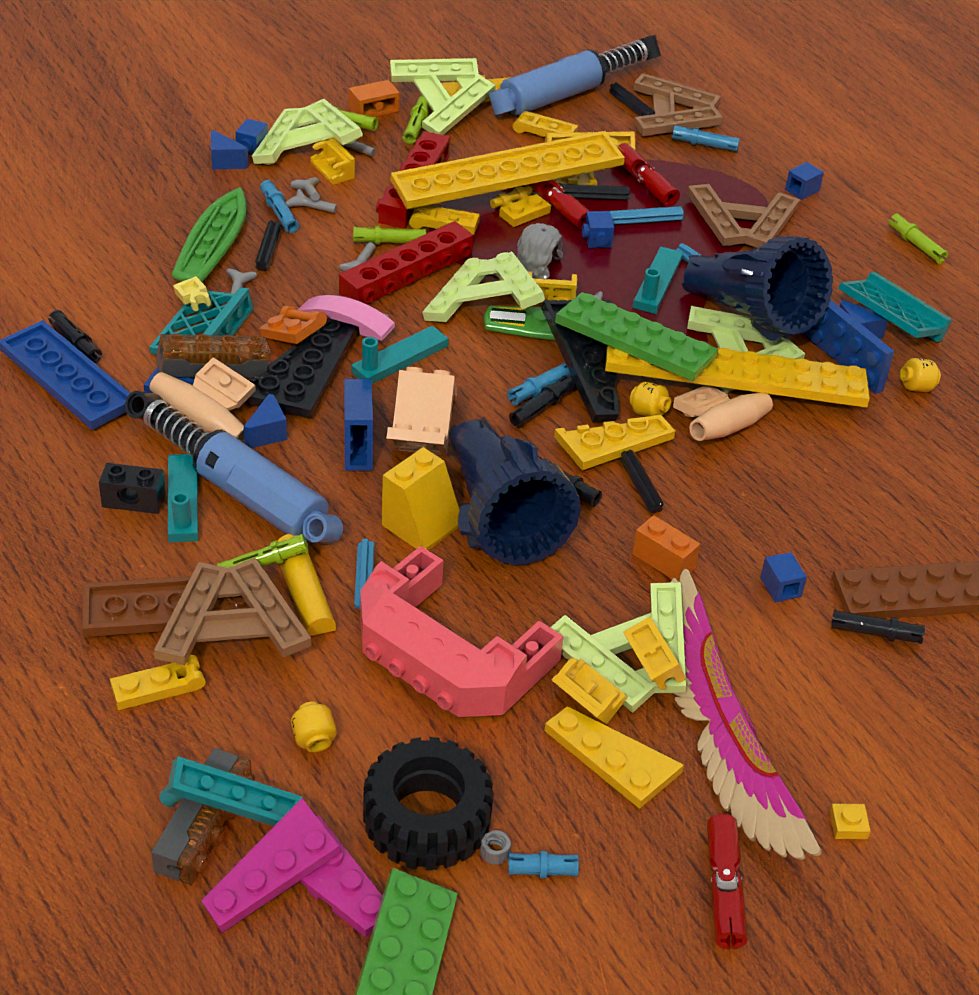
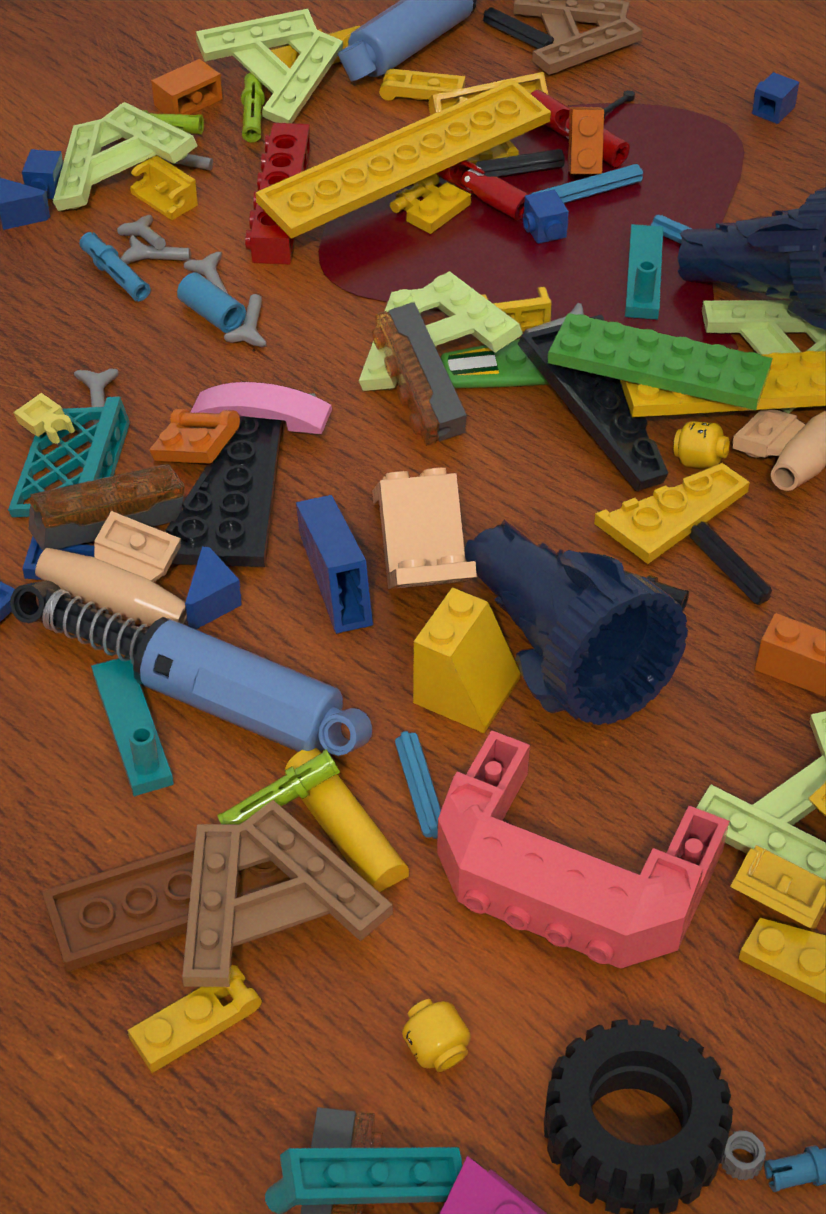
camera: 10 degrees left, 5 degrees up
(132, 488) = (60, 729): black brick -> none
(211, 236) = (38, 330): bright green piece -> none
(267, 245) = (118, 326): black axle -> none
(337, 241) = (211, 302): none -> dark azure pin
(345, 220) = (207, 268): none -> light grey piece
(386, 235) = (268, 280): lime pin -> none
(398, 356) = (333, 463): teal piece -> none
(406, 263) = (313, 316): red brick -> none
(437, 217) = (340, 242): yellow plate -> none
(463, 312) = (420, 374): none -> piece
(534, 385) = (543, 457): dark azure pin -> none
(536, 248) = (481, 260): light grey hair -> none
(549, 396) = (568, 466): black pin -> none
(645, 182) = (585, 140): none -> orange brick
(669, 169) = (627, 96): none -> black hinge
(697, 136) = (630, 63): dark azure pin -> none
(721, 216) = (692, 163): medium nougat plate -> none

